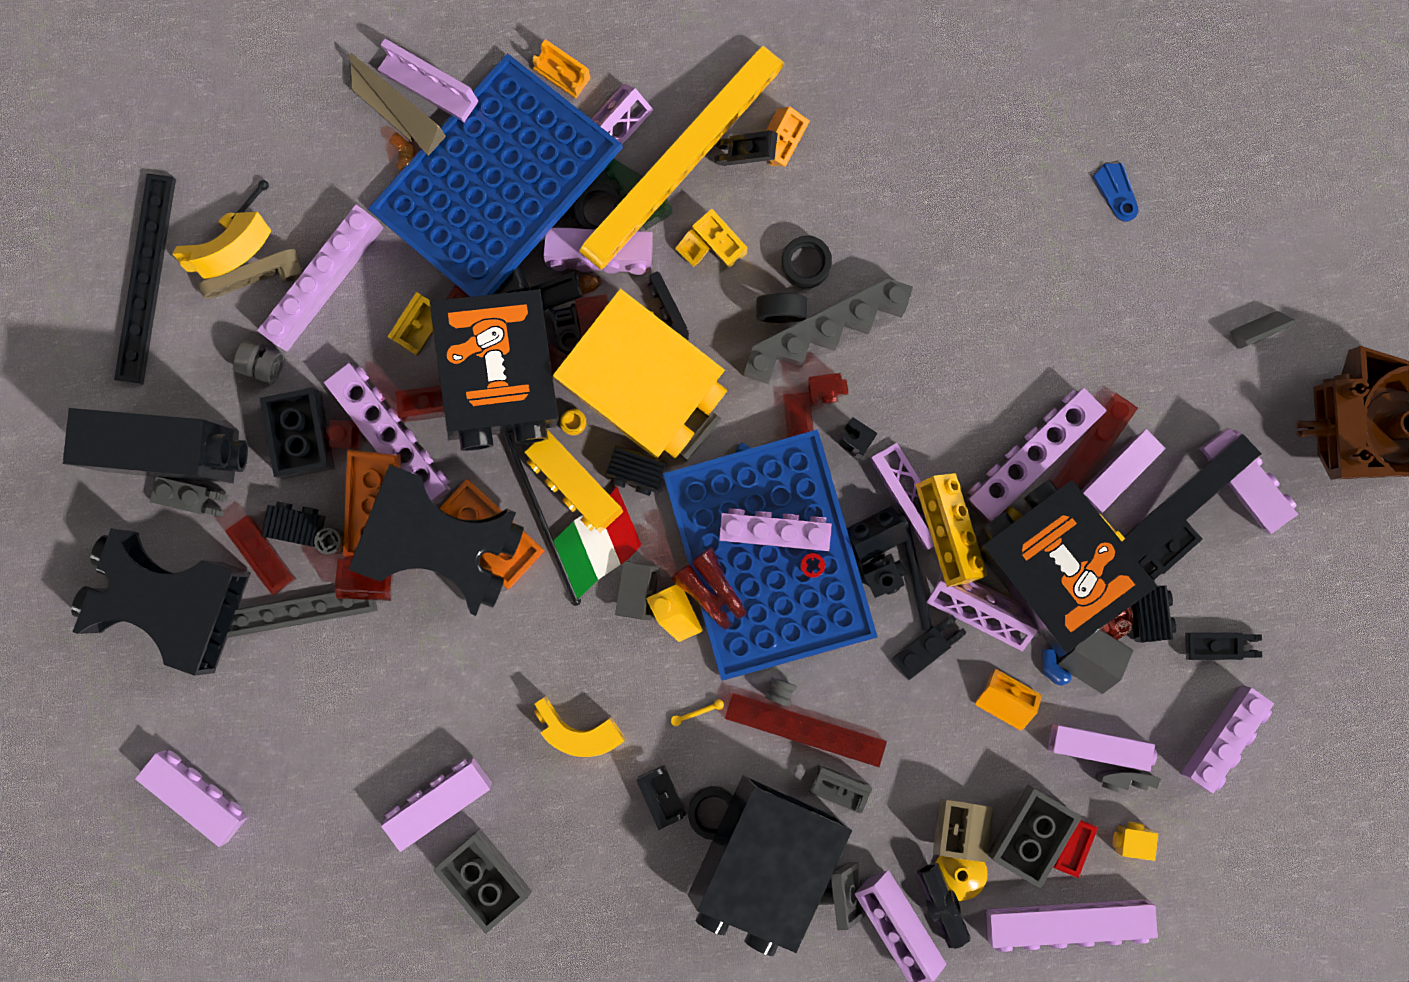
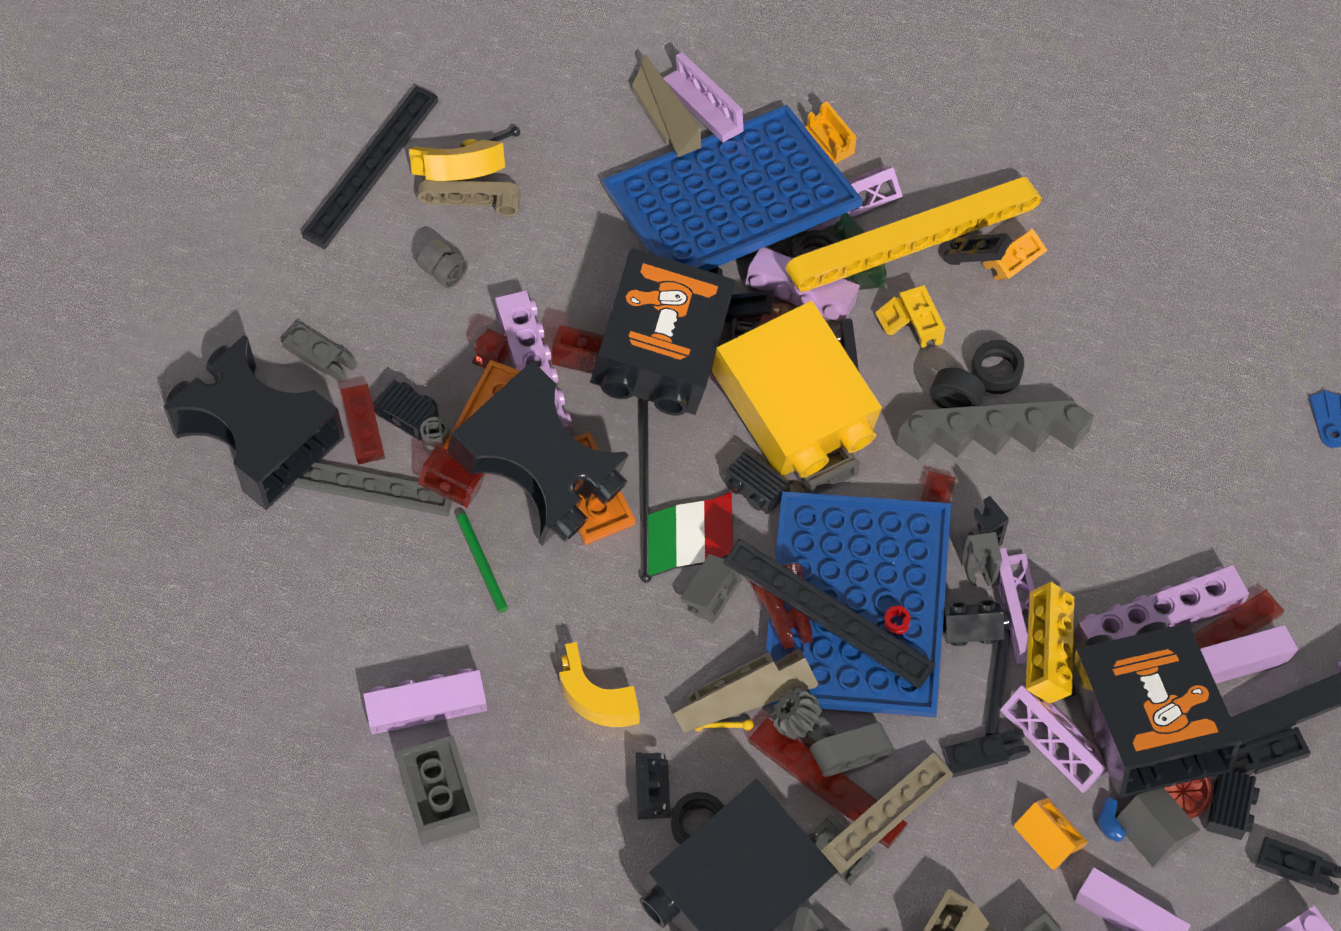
camera: 15 degrees right, 25 degrees down
(153, 446) = (319, 283): black brick -> none
(192, 797) = (189, 607): lavender brick -> none
(297, 433) = (449, 332): black brick -> none
(321, 278) = (532, 218): lavender brick -> none
(405, 149) = (657, 146): clear orange arm -> none
(414, 325) = (599, 286): yellow hinge -> none
(427, 645) = (482, 563): none -> green bar
(573, 422) = (713, 421): yellow plate -> none
(574, 482) = (692, 467): yellow brick -> none
(675, 613) = (740, 618): yellow slope -> none
(706, 676) = (745, 689): none -> dark tan wedge
(752, 589) = (829, 613): none -> black tile
(759, 690) = (796, 713): none -> dark grey gear
(771, 531) = (873, 572): lavender brick -> none
(817, 698) = (852, 749): none -> dark grey beam
(827, 388) = (974, 478): clear red brick -> none
(864, 469) = (983, 556): none -> dark grey hinge
(870, 752) = (886, 813): none -> dark tan plate
(884, 575) = (956, 656): black brick -> none

